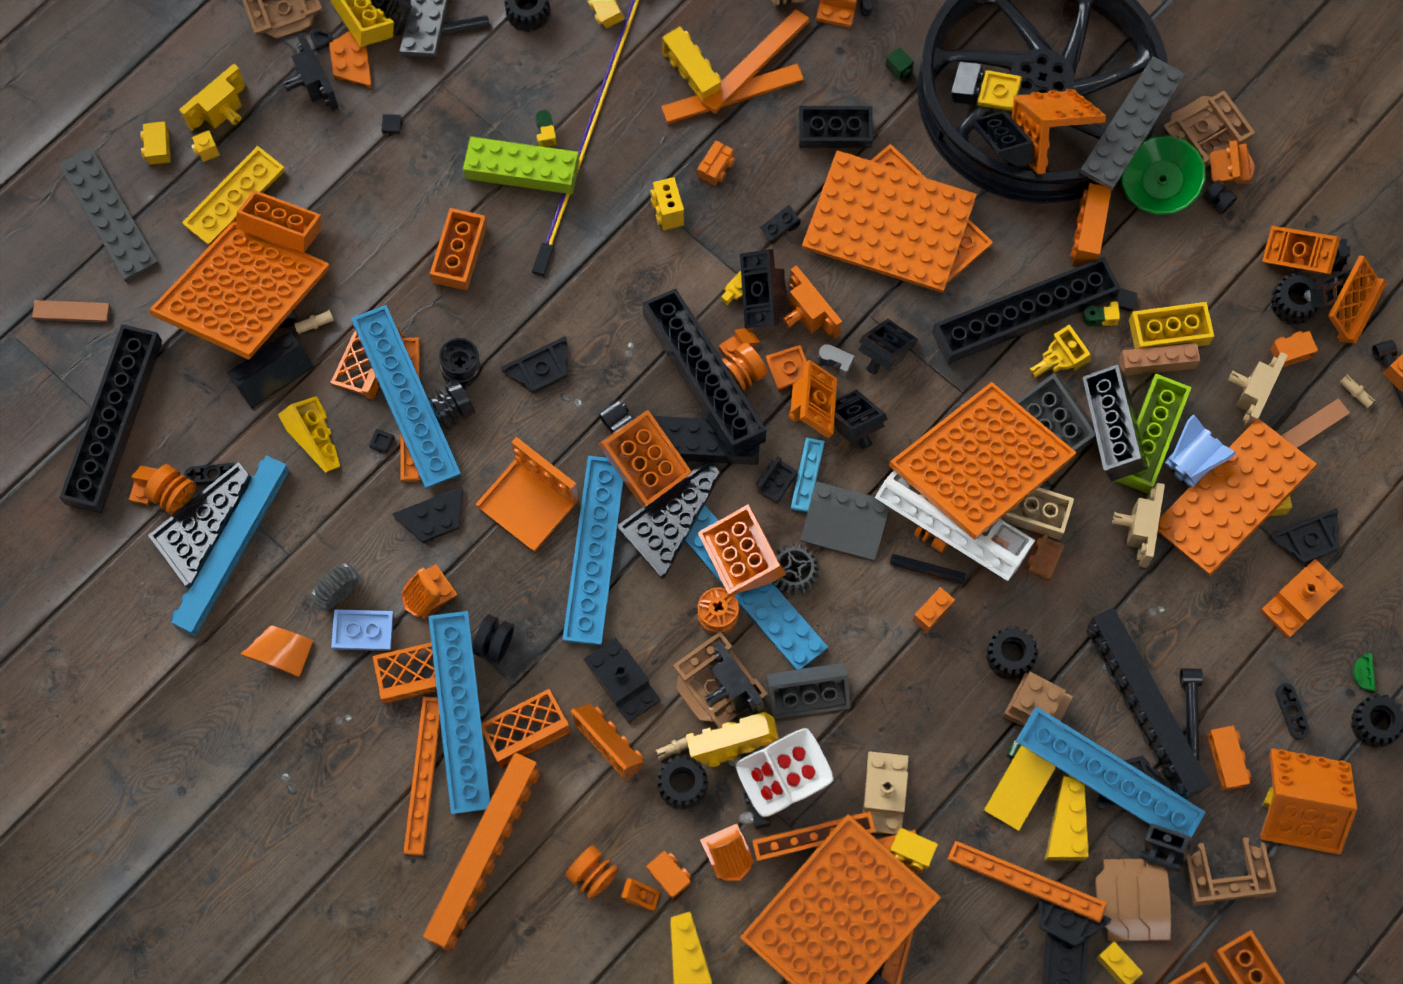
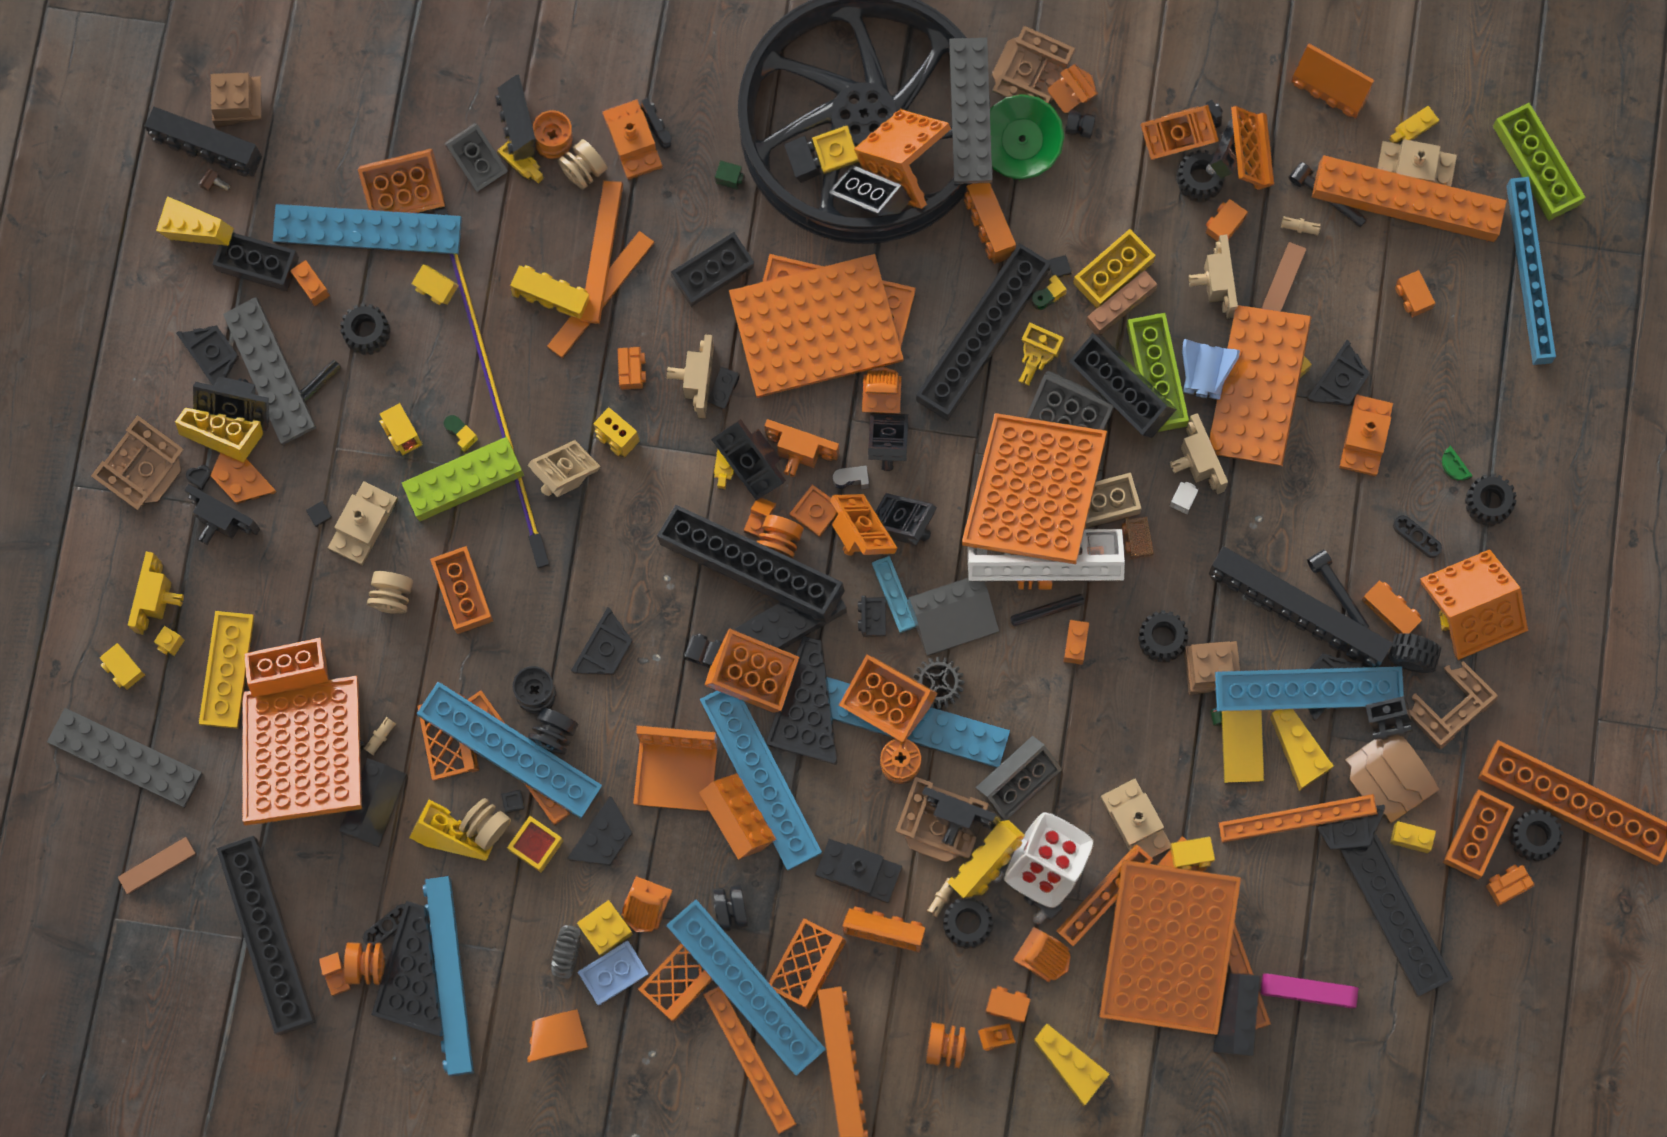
camera: 30 degrees left, 5 degrees up
(344, 442) = (488, 826): none -> tan wheel
(373, 485) = (535, 844): none -> piece
(381, 589) = (605, 928): none -> yellow piece
(403, 211) = (389, 597): none -> tan wheel
(419, 150) = (362, 522): none -> tan brick
(498, 96) = (402, 433): none -> yellow piece
(551, 568) = (737, 816): none -> orange brick
(605, 204) = (563, 468): none -> tan brick
(765, 199) = (696, 375): none -> tan brick
(908, 307) = (881, 391): none -> orange piece
(1107, 549) = (1184, 497): none -> white brick
(1224, 806) = (1414, 653): none -> black tyre

